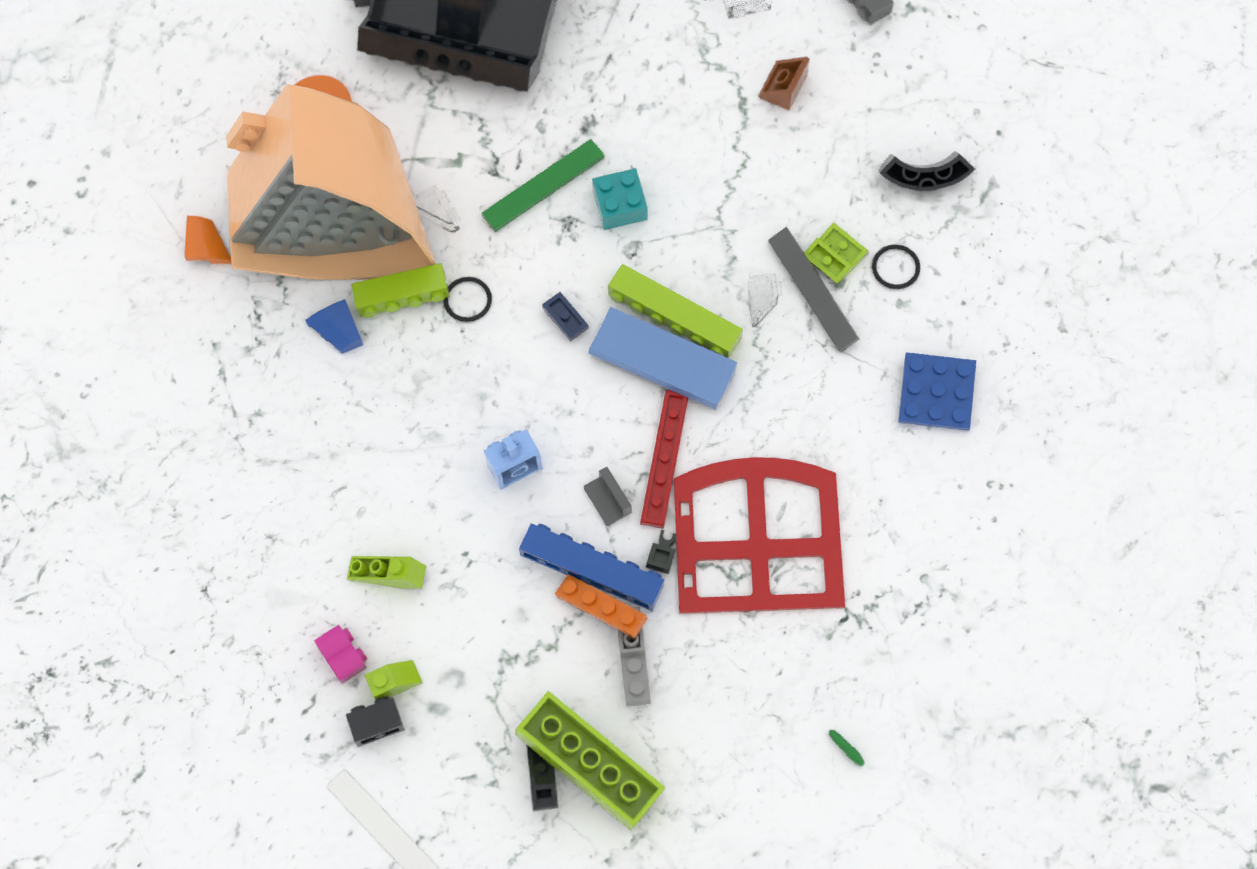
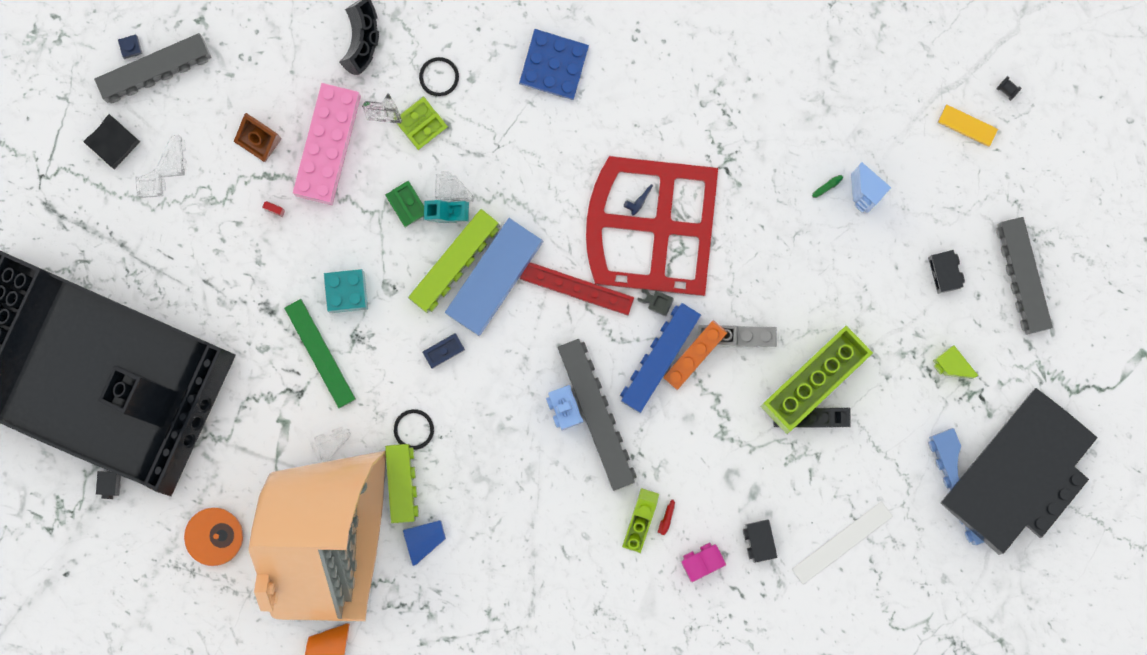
camera: 85 degrees left, 15 degrees up
(387, 604) = (665, 523): none -> red piece
(393, 679) = (729, 523): lime slope -> none
(510, 500) = (596, 414): none -> dark grey brick
(608, 497) = (604, 338): dark grey panel -> none
(704, 110) = (277, 210): none -> red tile
(732, 291) = (445, 211): none -> teal brick
(735, 251) = (406, 203): none -> green plate
(784, 516) = (637, 205): none -> dark blue bar
(790, 154) = (327, 144): none -> bright pink brick
(813, 289) = (450, 146): dark grey tile -> none
(841, 209) = (382, 112): none -> clear slope
(846, 790) = (867, 188): none -> light blue slope

